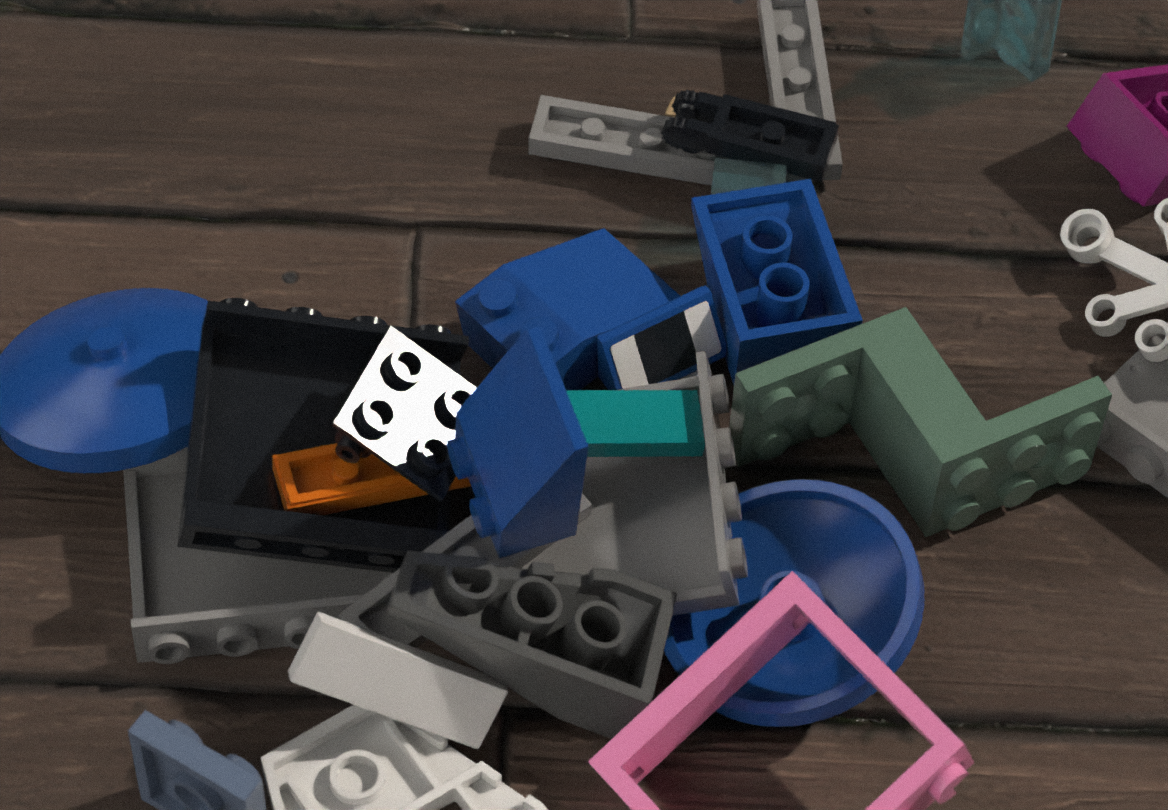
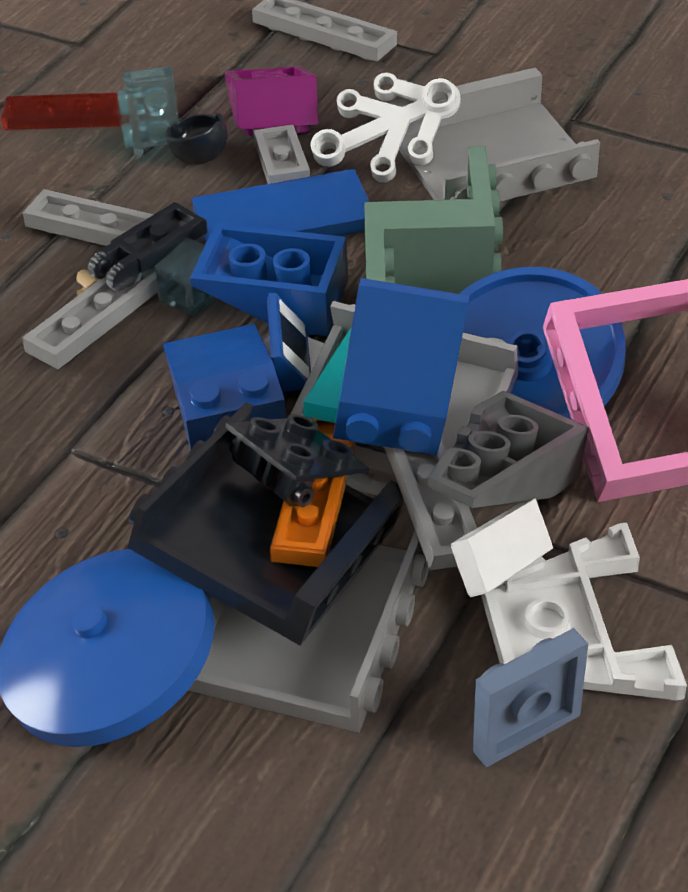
camera: 60 degrees left, 10 degrees down
(945, 248) = (309, 204): none -> blue tile
(1020, 92) = (198, 138): none -> black hair
(1049, 195) = (280, 154): none -> light grey plate

